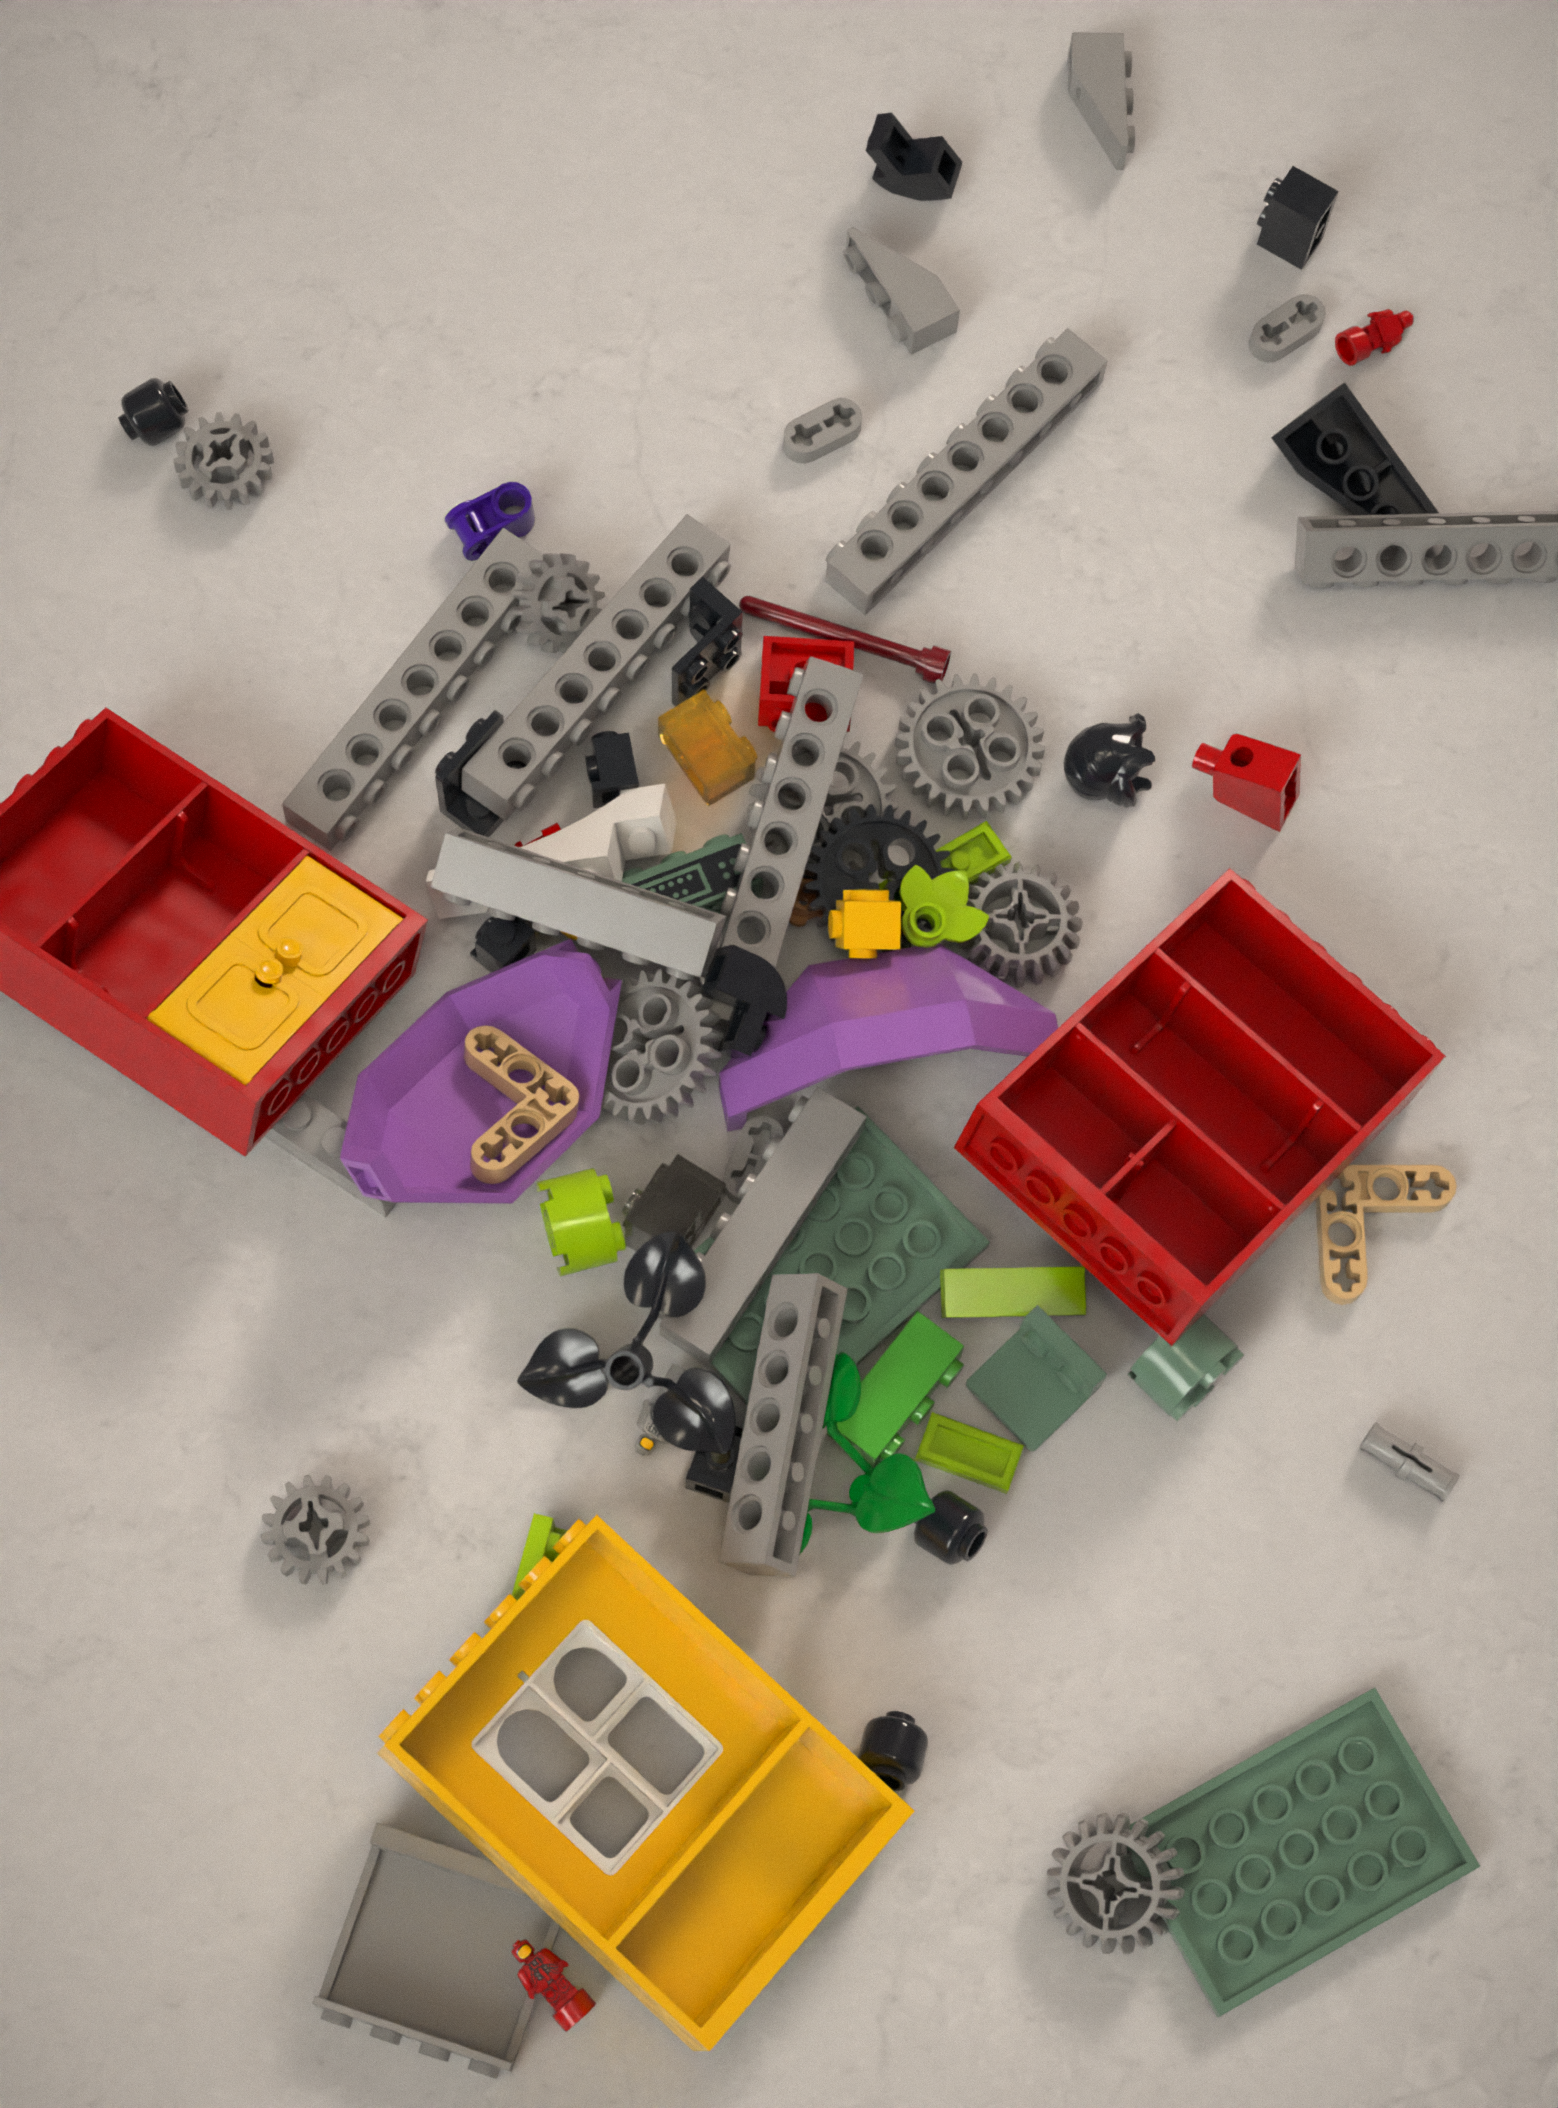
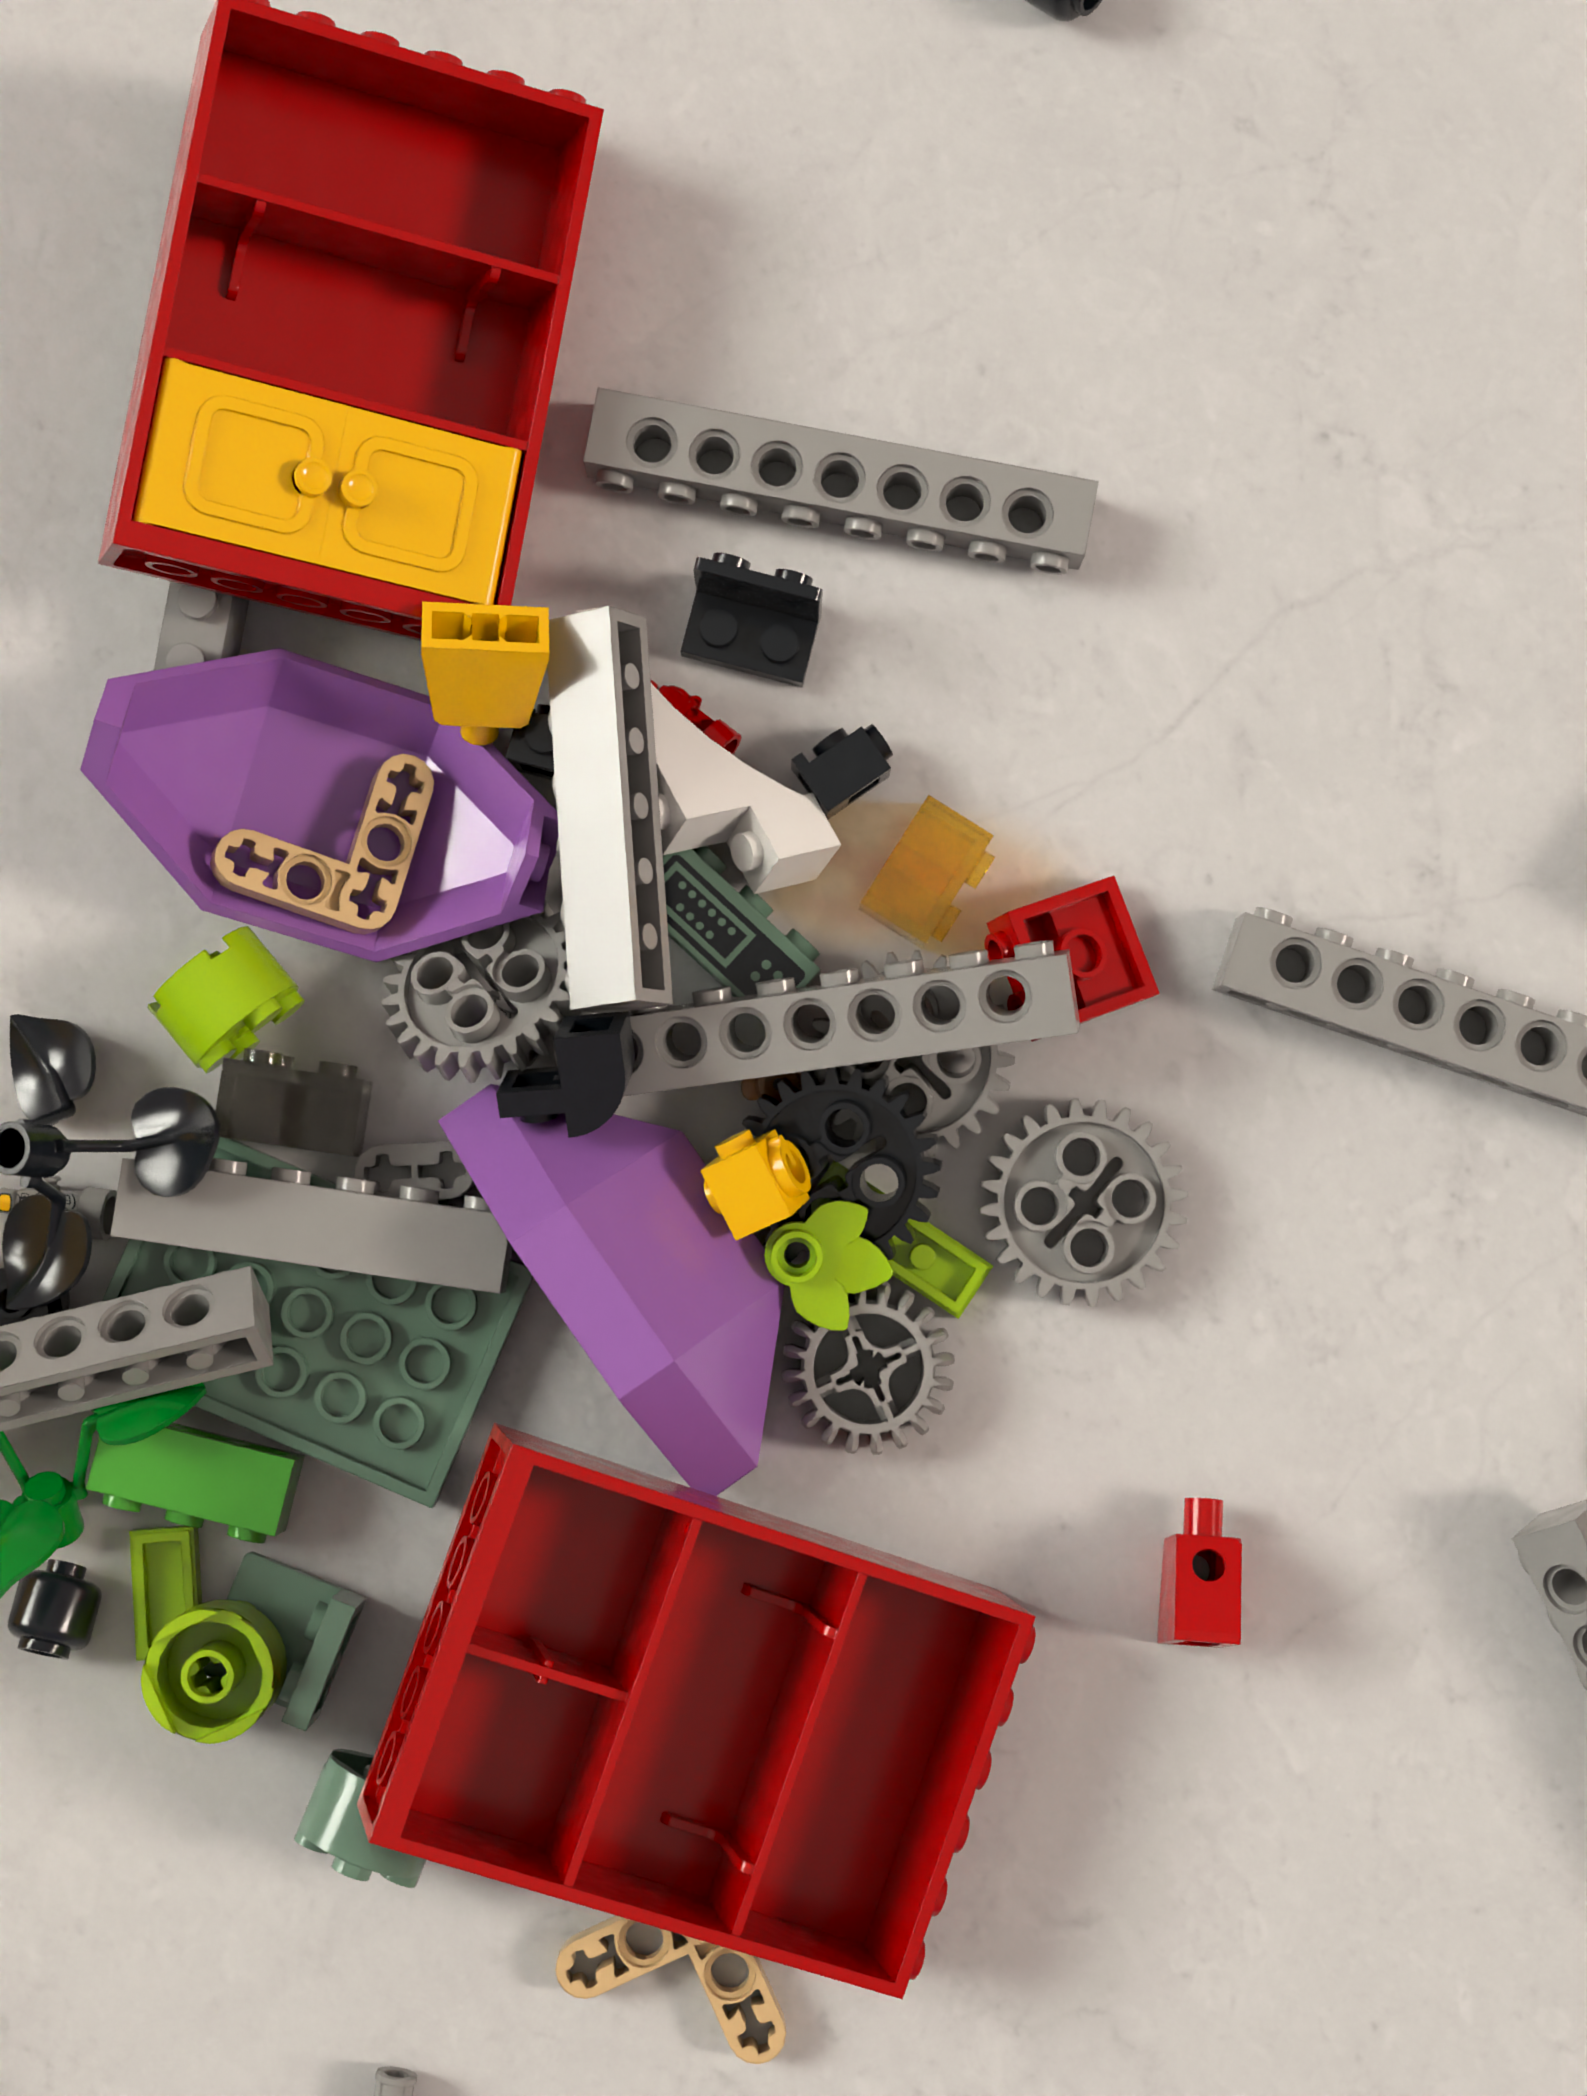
camera: 70 degrees right, 15 degrees up
(223, 460) = (1009, 85): light grey gear -> none
(442, 935) = (483, 665): none -> yellow torso
(488, 517) = (1109, 459): dark purple piece -> none
(504, 789) = (1188, 722): light grey brick -> none
(556, 601) = (1028, 598): light grey gear -> none
(718, 630) = (1063, 832): black bracket -> none
(823, 432) = (1452, 809): light grey beam -> none
(928, 662) = (1176, 1099): dark red piece -> none
(1012, 1291) = (375, 1555): lime tile -> none
(1061, 1405) = (214, 1707): none -> lime brick
(1107, 761) = (1131, 1386): black hair -> none

